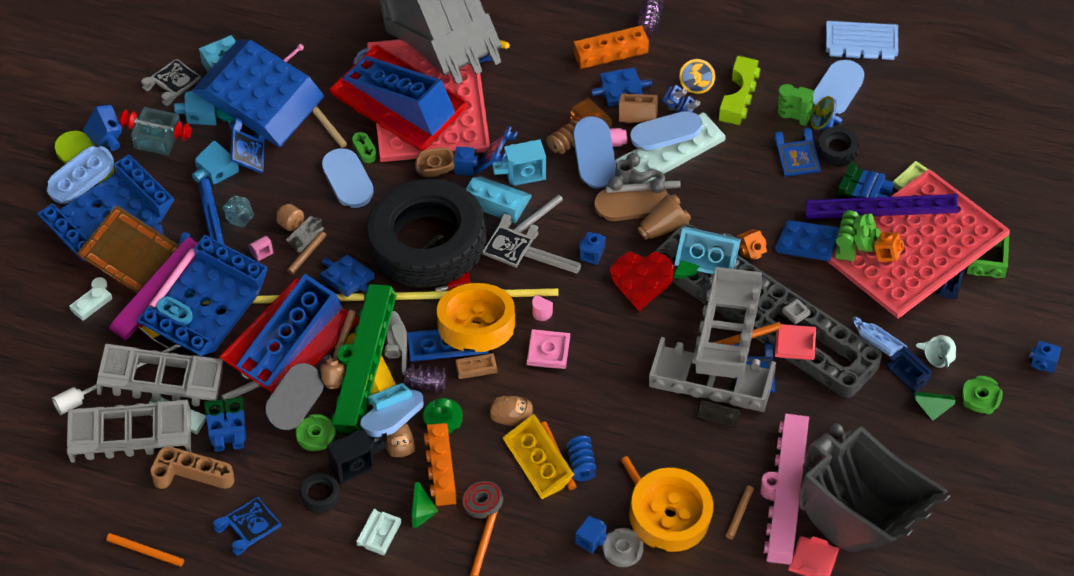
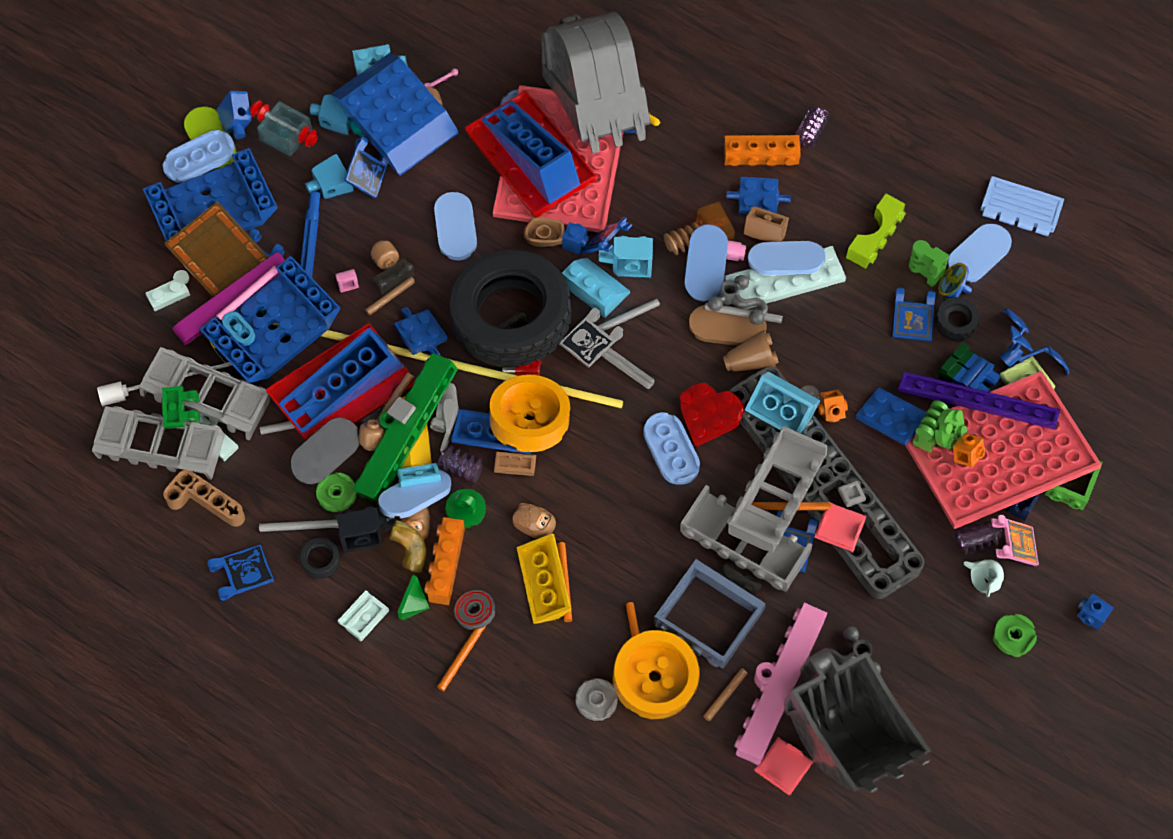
camera: 15 degrees right, 10 degrees up
(137, 391) = (173, 407): none -> green plate
(145, 549) = (136, 570): orange piece -> none
(174, 79) = (321, 76): light grey flag -> none
(229, 429) = (253, 459): blue hips -> none
(238, 211) = (336, 235): clear light blue brick -> none
(290, 470) = (298, 525): none -> light grey bar
(329, 127) = (455, 166): tan bar -> none
(357, 341) = (401, 410): none -> light grey tile
(367, 146) = (486, 196): bright green beam -> none
(405, 454) = (413, 544): none -> clear yellow cylinder
(541, 308) = (599, 419): bright pink brick -> none
(548, 349) = (592, 464): bright pink plate -> none
(581, 458) = (584, 593): blue piece -> none
(591, 534) = (568, 678): blue brick -> none
(592, 247) = (671, 366): blue brick -> none
(616, 318) = (671, 448): none -> light blue tile
(673, 96) = (804, 223): blue piece -> none
(686, 269) = (754, 418): green tile -> none
(697, 76) = (837, 205): shield -> none
(707, 421) = (725, 587): none -> sand blue window
(878, 337) = (929, 544): light blue tile -> none
(898, 160) = (1014, 351): none -> blue plant
(909, 369) = (948, 587): dark blue hinge -> none
(921, 320) = (977, 536): none -> clear purple piece
(934, 404) = (962, 630): green slope -> none
(958, 315) = (1019, 541): none -> flag

